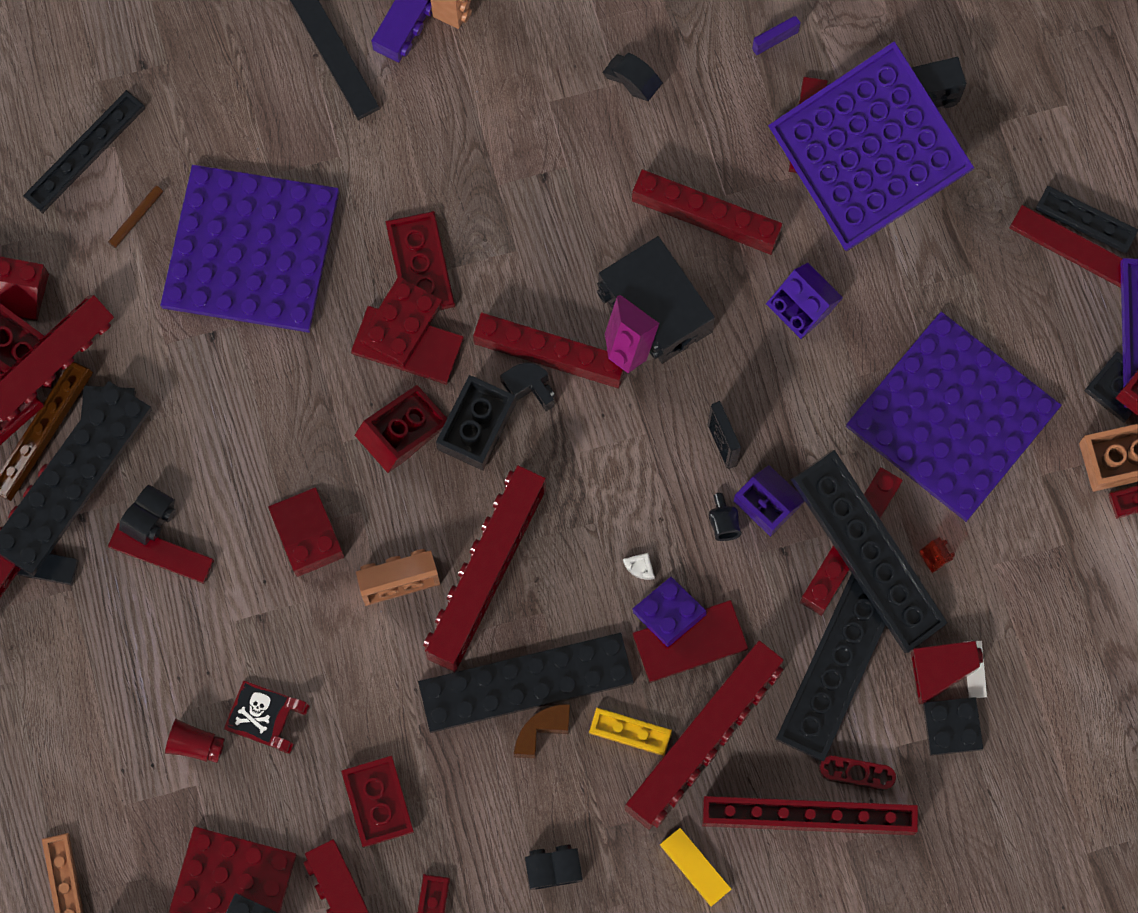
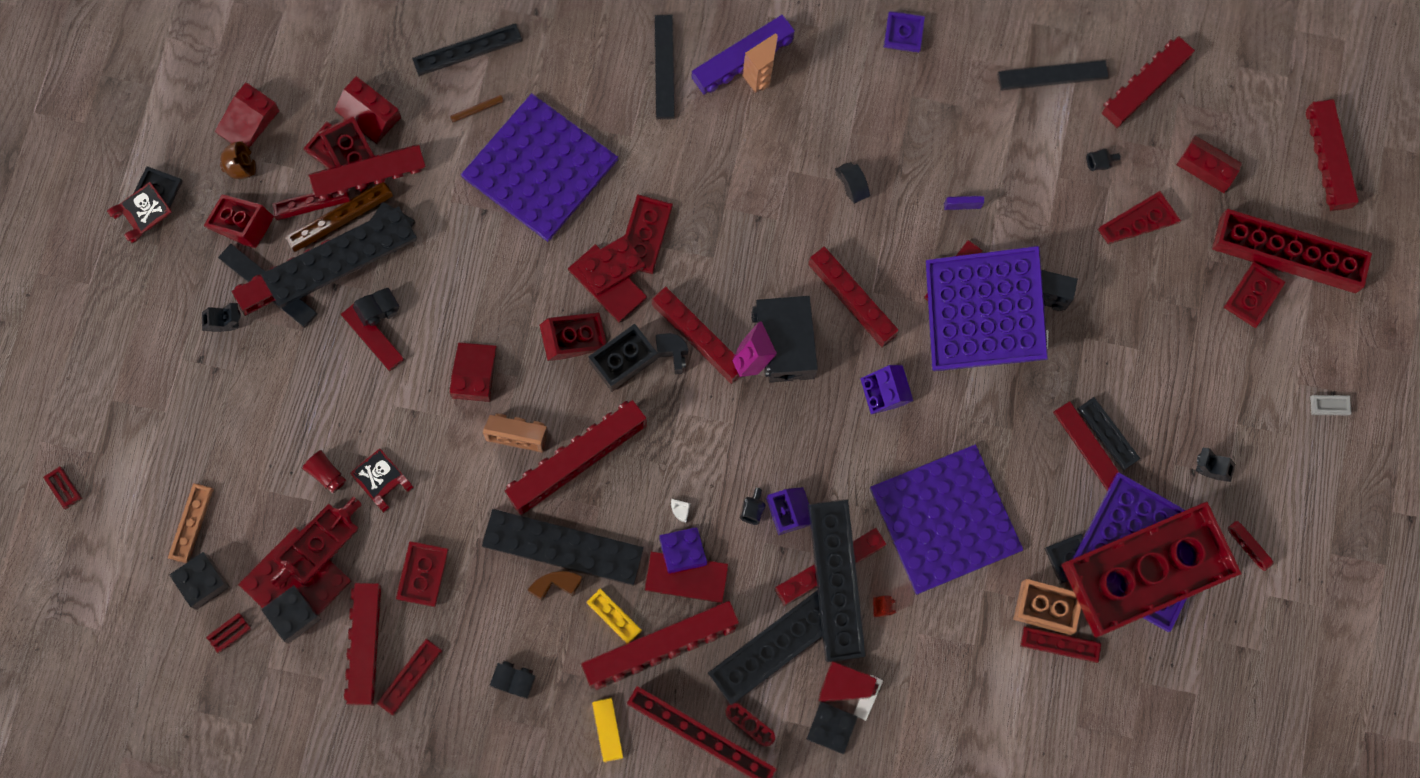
camera: 20 degrees right, 0 degrees up
(232, 831) = (316, 544): none -> dark red plate
(723, 435) = (781, 451): black tile -> none

